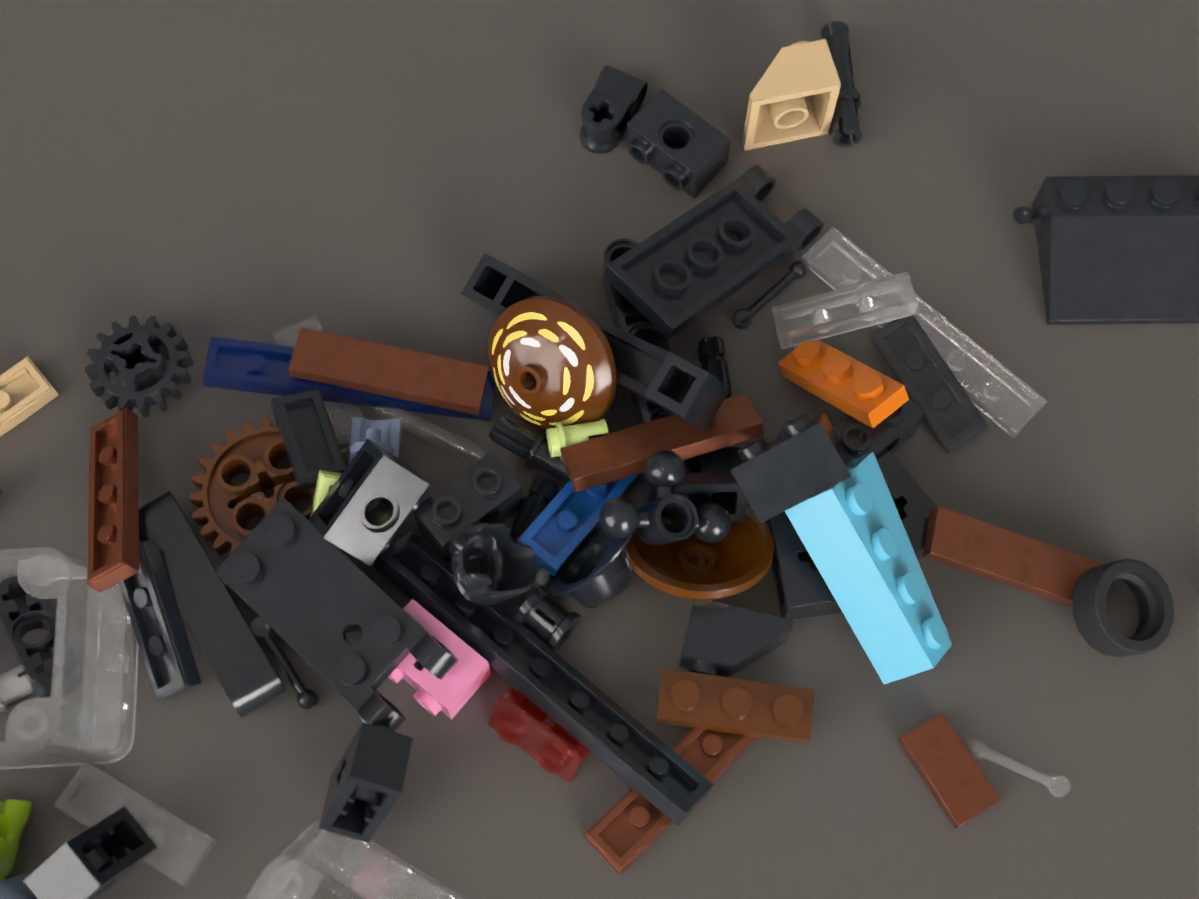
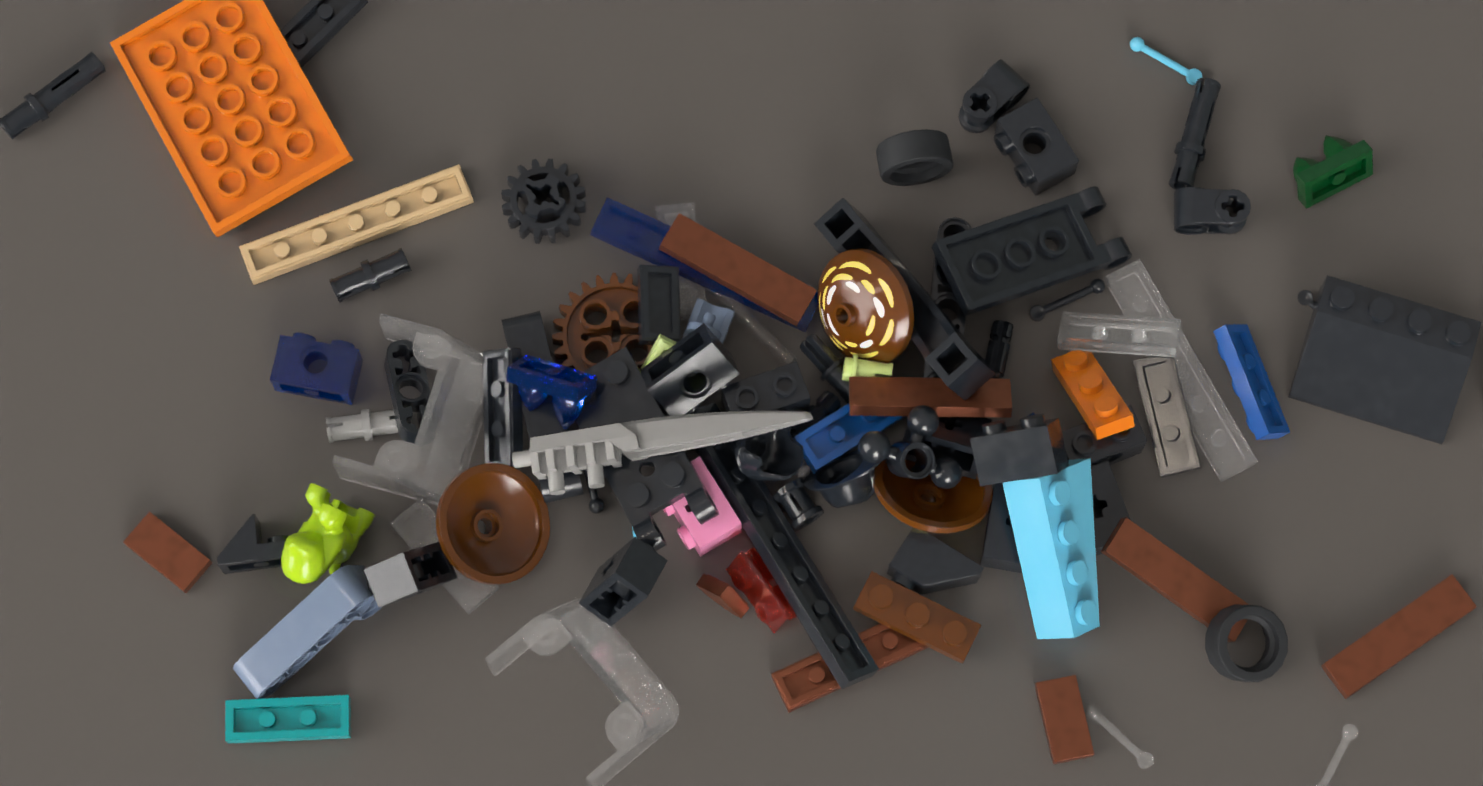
camera: 20 degrees right, 5 degrees up
(113, 501) = (496, 305): copper tile -> none
(187, 566) = (540, 377): none -> clear blue tile
(207, 746) = (513, 518): none -> reddish brown dish
(330, 602) = (641, 439): none -> light grey piece
(494, 756) = (723, 595): none -> copper tile
(549, 190) = (914, 157): none -> black tyre
(793, 97) = (1143, 138): tan slope -> none
(813, 29) = (1137, 44): none -> medium azure hinge
(887, 155) = (1204, 211): none -> black piece
(1005, 74) = (1342, 168): none -> dark green tile
(1005, 319) = (1251, 382): none -> blue plate

